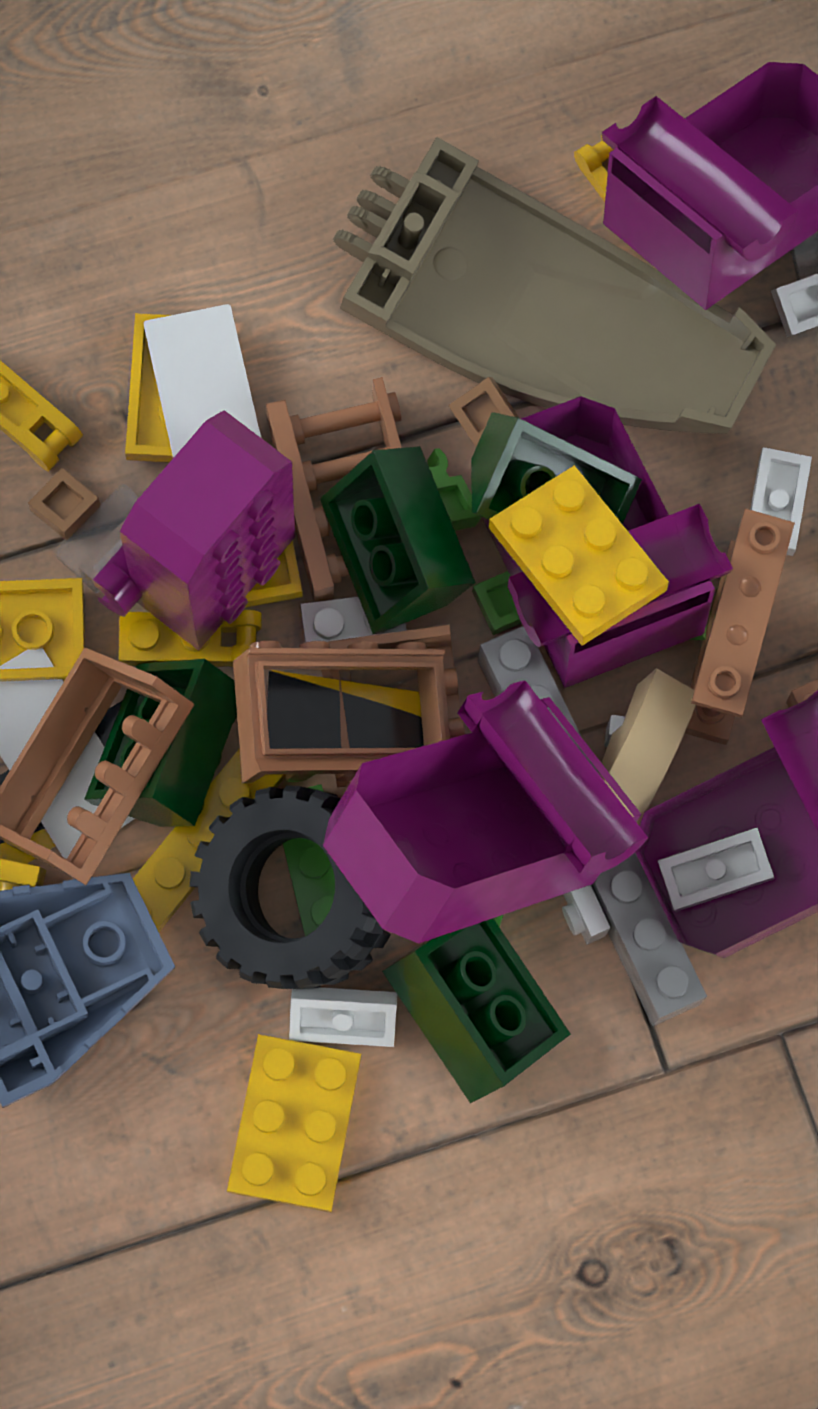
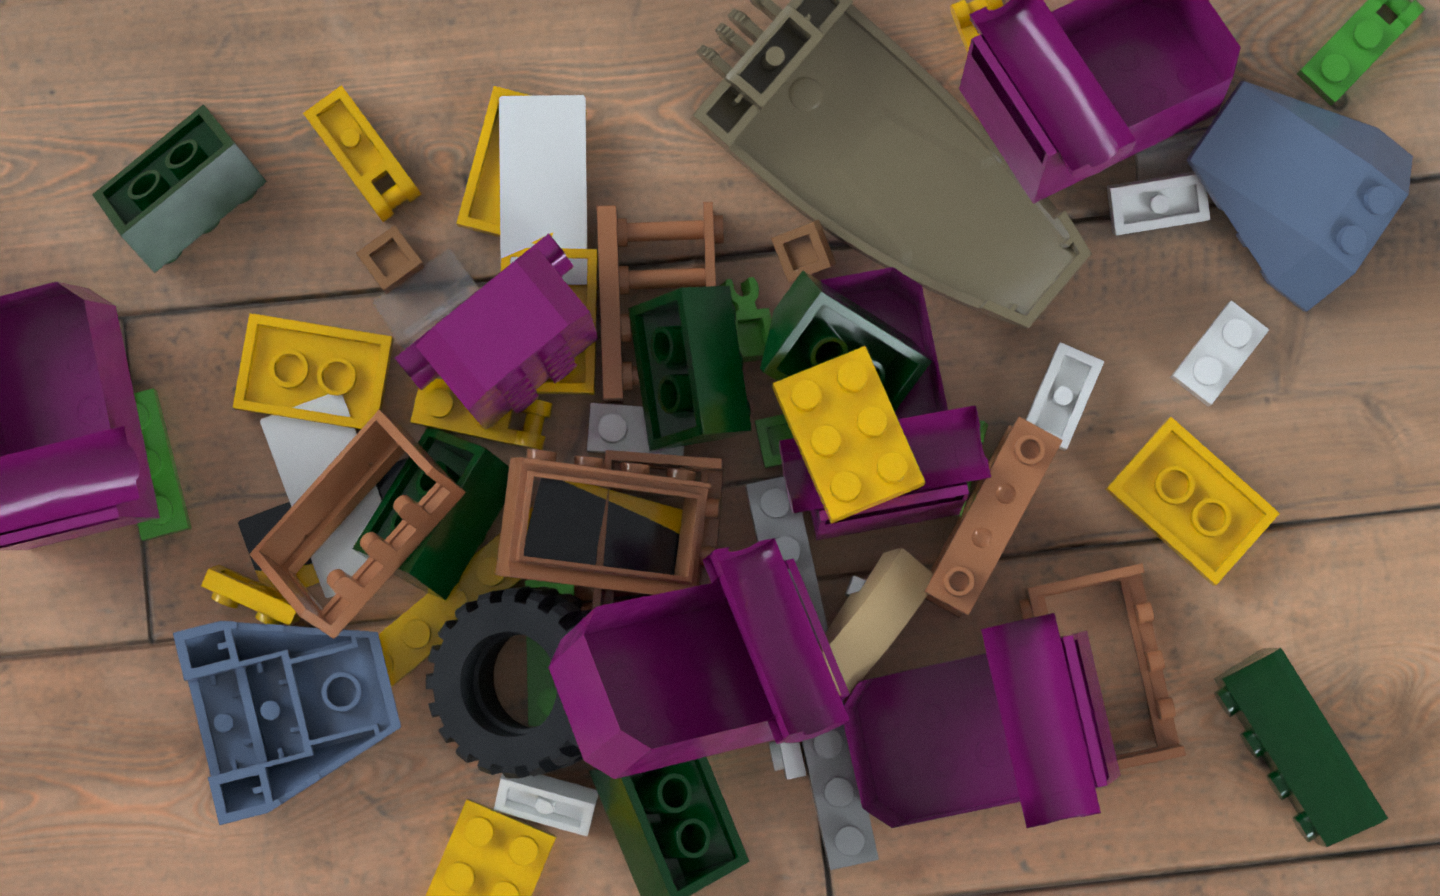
camera: 15 degrees right, 10 degrees up
(716, 869) = (916, 742): white plate -> none

